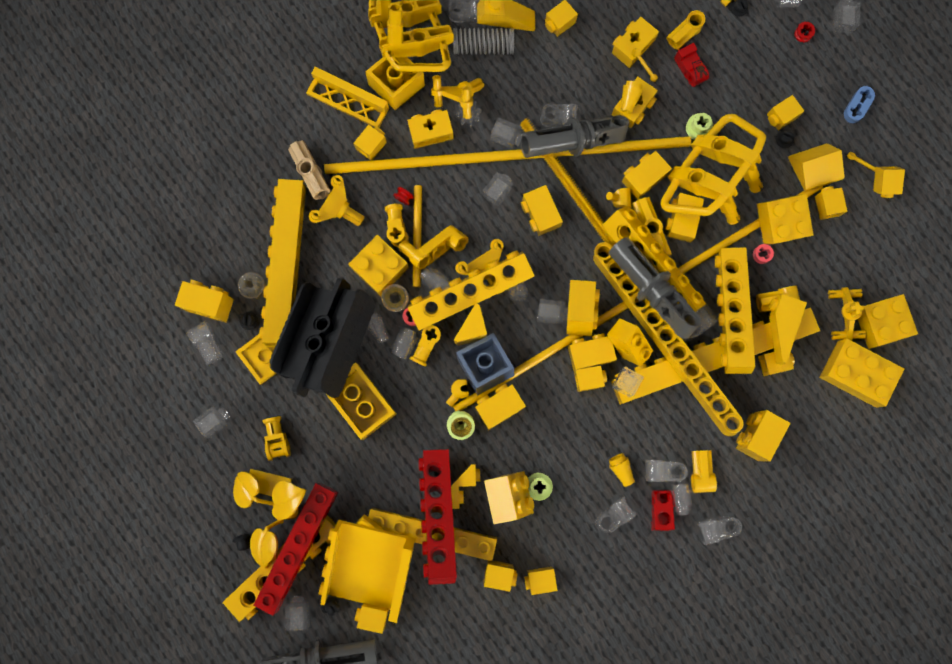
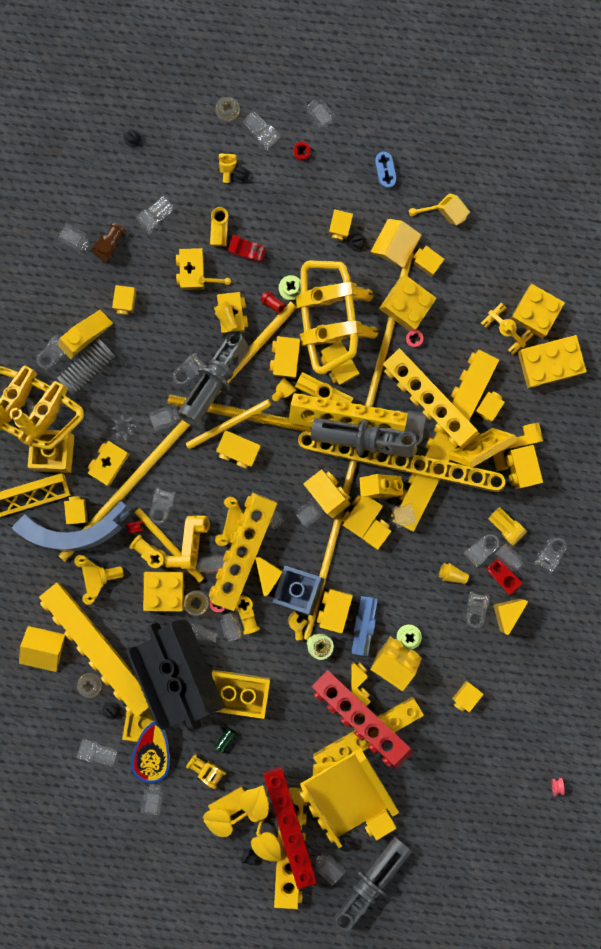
camera: 50 degrees left, 5 degrees up
(201, 300) = (68, 728): yellow brick -> none
(242, 222) = (41, 648): none -> yellow slope
(245, 384) = (151, 755): none -> shield
(313, 178) = (43, 568): tan piece -> none
(314, 429) = (225, 740): none -> dark green pin
(349, 163) = (76, 540): none -> sand blue arch
(443, 196) = (162, 504): none -> clear piece
(462, 93) = (105, 421): yellow axle -> none
(498, 189) = (194, 461): clear brick -> none
(500, 576) = (437, 719): yellow brick -> none
(511, 443) = (364, 626): none -> medium blue piece
(555, 183) = (228, 424): none -> yellow piece
(639, 544) = (508, 614): none -> yellow slope
(674, 120) = (269, 300): none -> red pin
(744, 387) = (482, 447): none -> yellow tile
(752, 401) = (532, 435): none -> yellow beam
(763, 300) = (455, 358): yellow piece -> none
(784, 323) = (470, 377): yellow slope -> none

